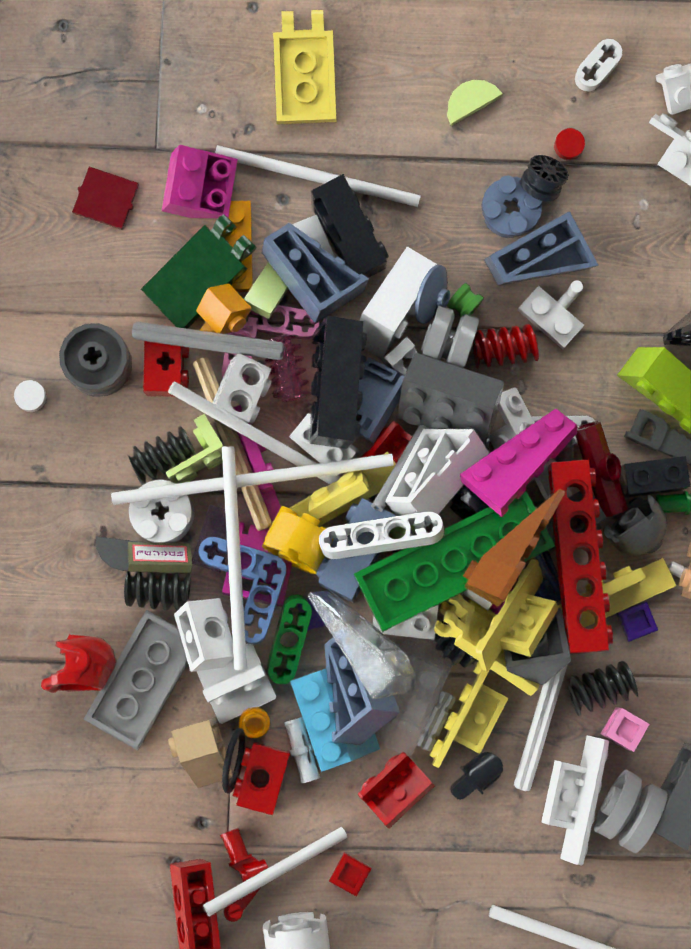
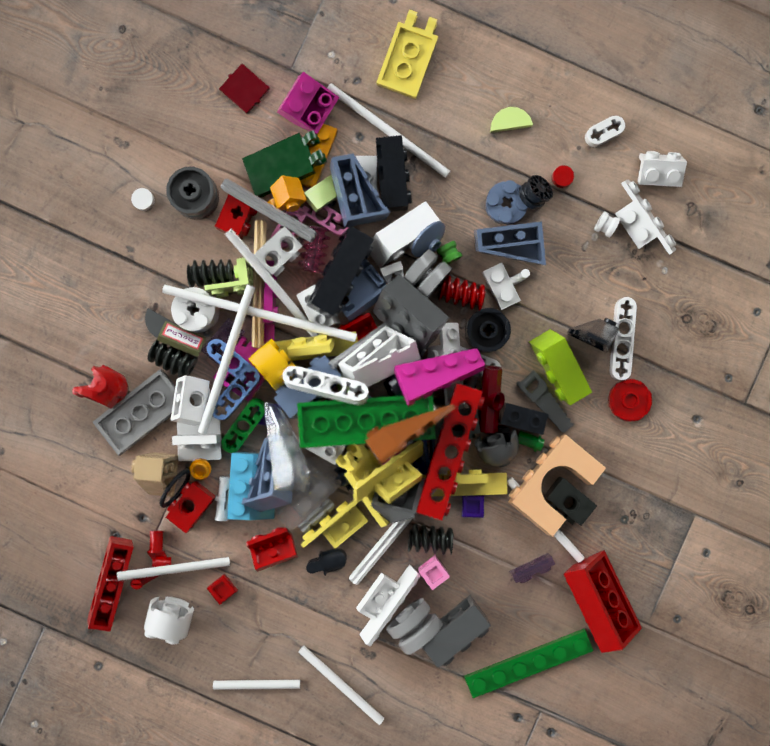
camera: 25 degrees right, 5 degrees up
(565, 366) = (497, 323): none -> black brick
(653, 182) = (607, 224): none -> white wheel

